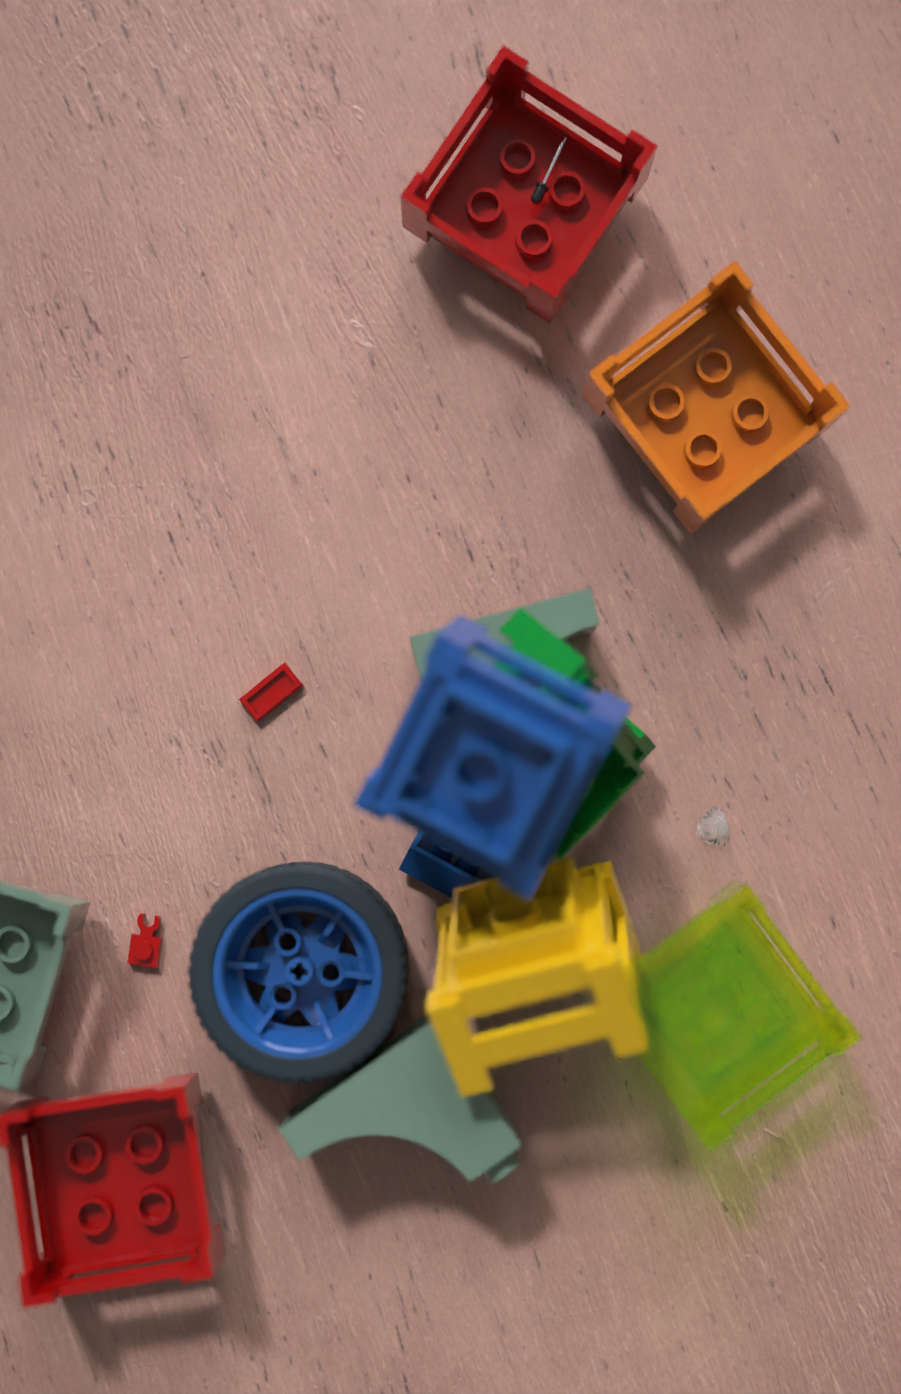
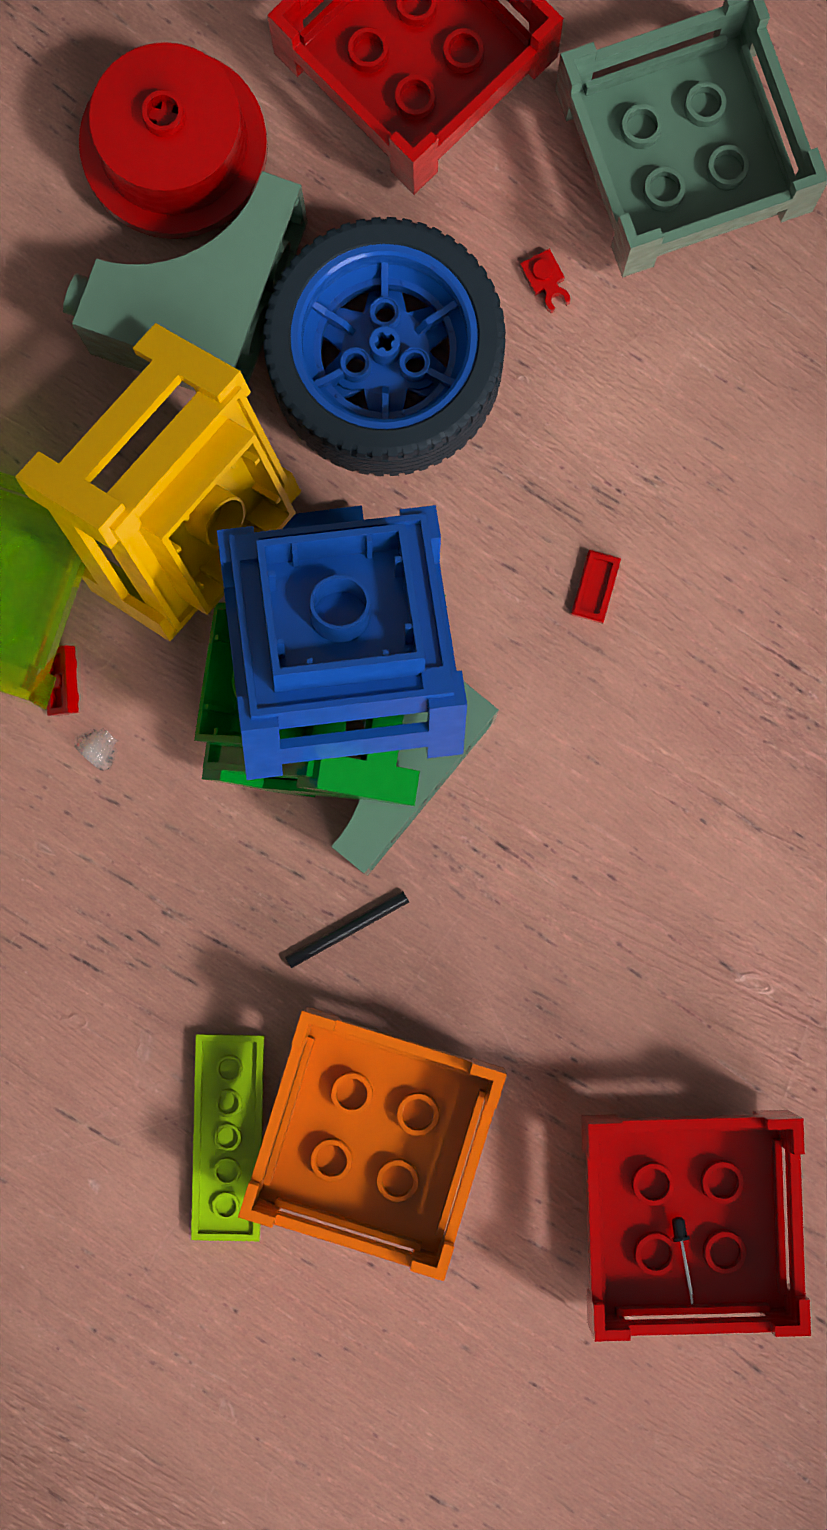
camera: 150 degrees right, 0 degrees up
(352, 1204) = (172, 141): none -> red piece
(623, 572) = (347, 929): none -> black bar
(709, 883) = (65, 693): none -> red plate
(809, 489) = (226, 1133): none -> lime plate

